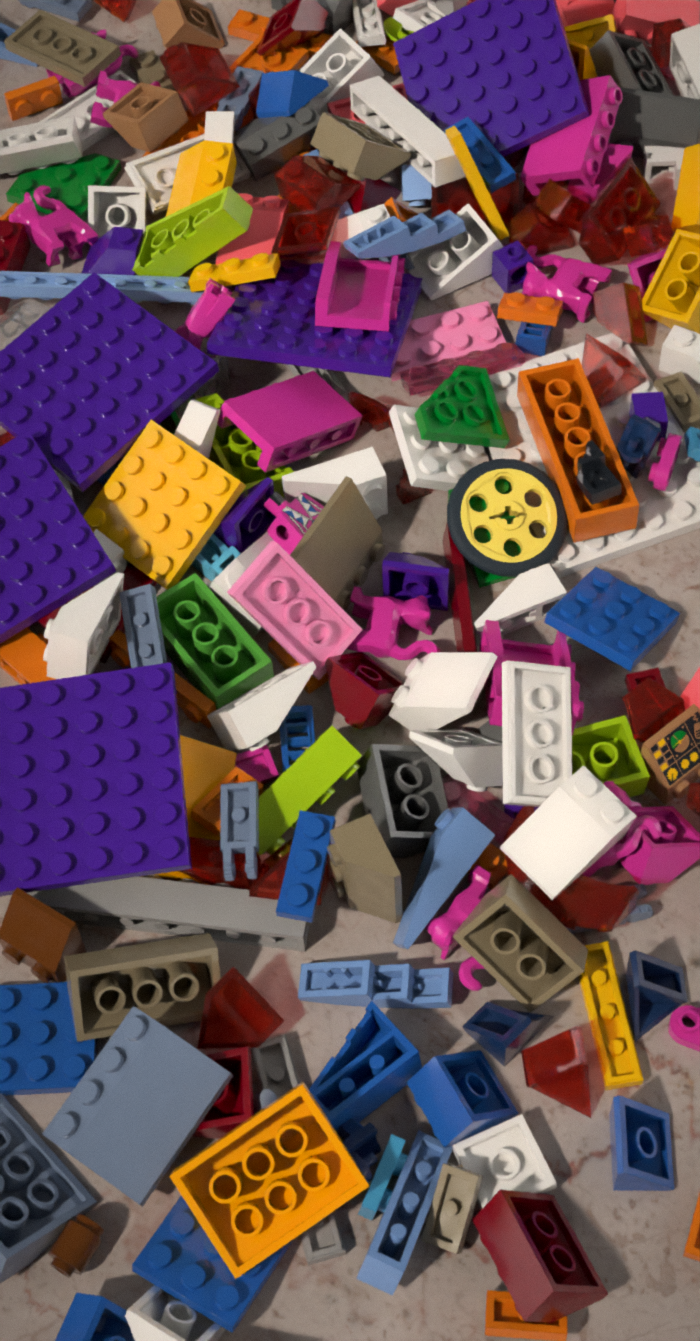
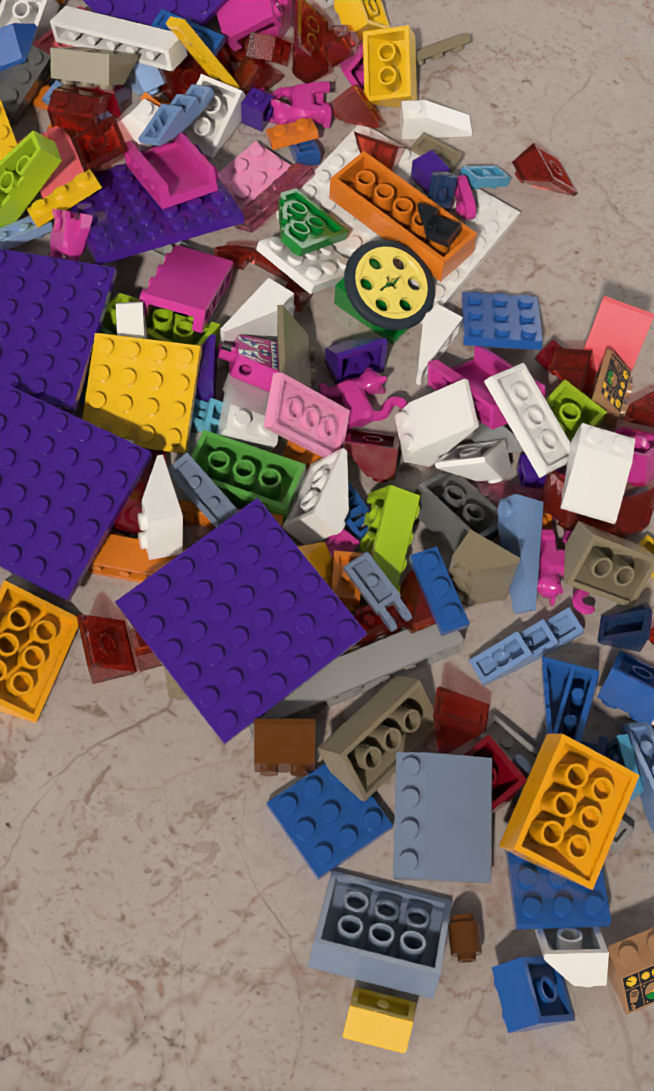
camera: 40 degrees left, 5 degrees up
(459, 597) = (395, 361): dark red tile -> none

